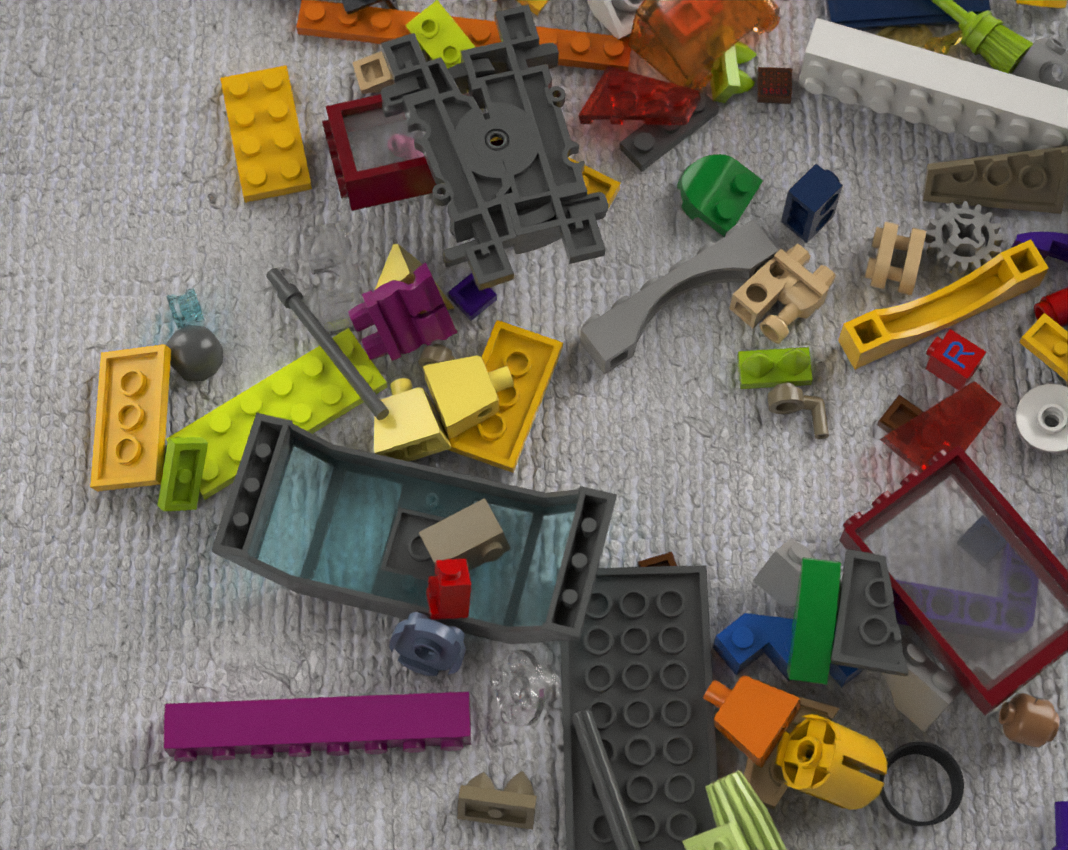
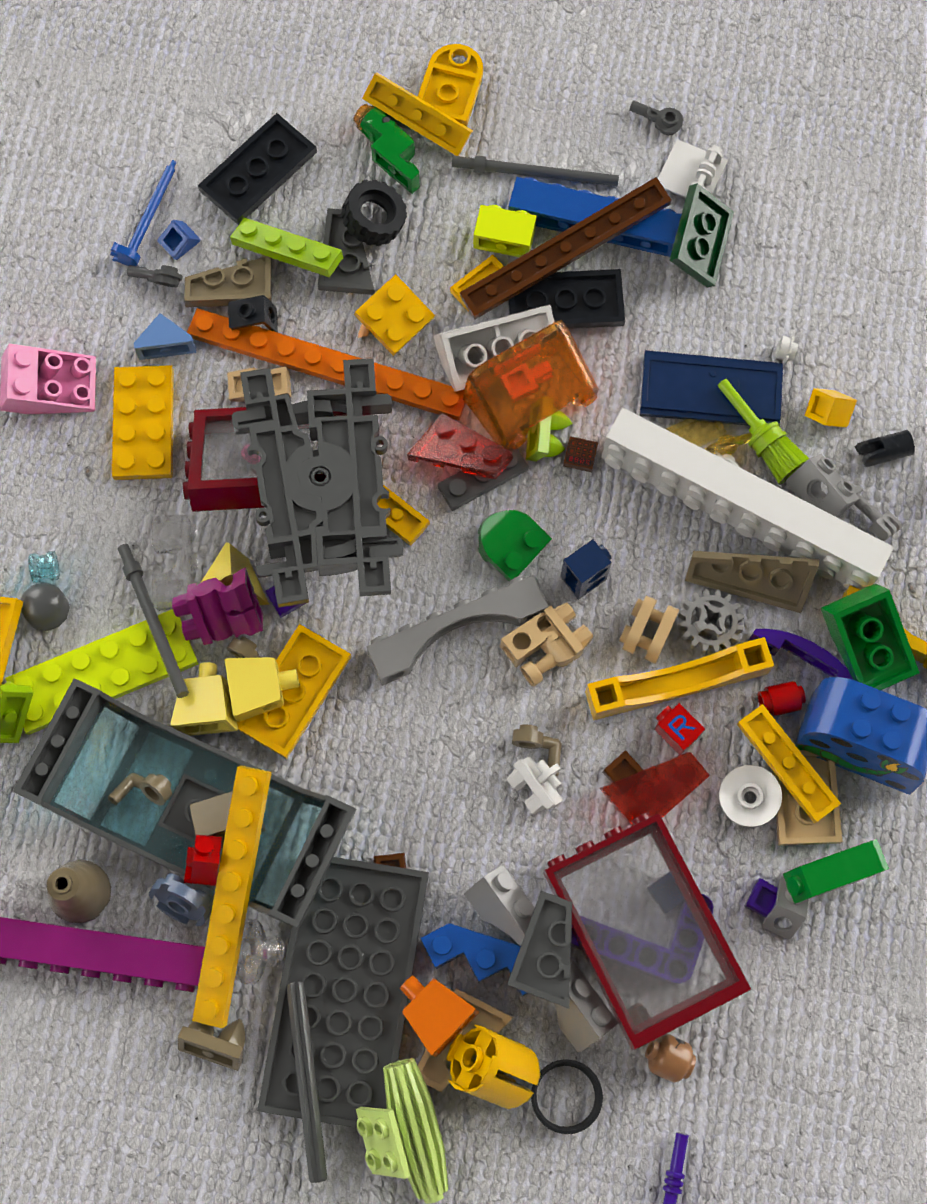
camera: 10 degrees right, 5 degrees up
(144, 105) = (46, 381): none -> bright pink slope
(273, 38) = (163, 339): none -> medium blue slope
(302, 661) = (78, 891): none -> dark tan cone
(370, 526) = (154, 787): none -> dark tan plate
(439, 34) = (302, 367): neon yellow brick -> none
(490, 625) = (231, 896): none -> yellow plate
(774, 367) = (525, 706): lime tile -> none
(814, 621) = (501, 946): green slope -> none
(819, 458) = (540, 780): none -> white hips

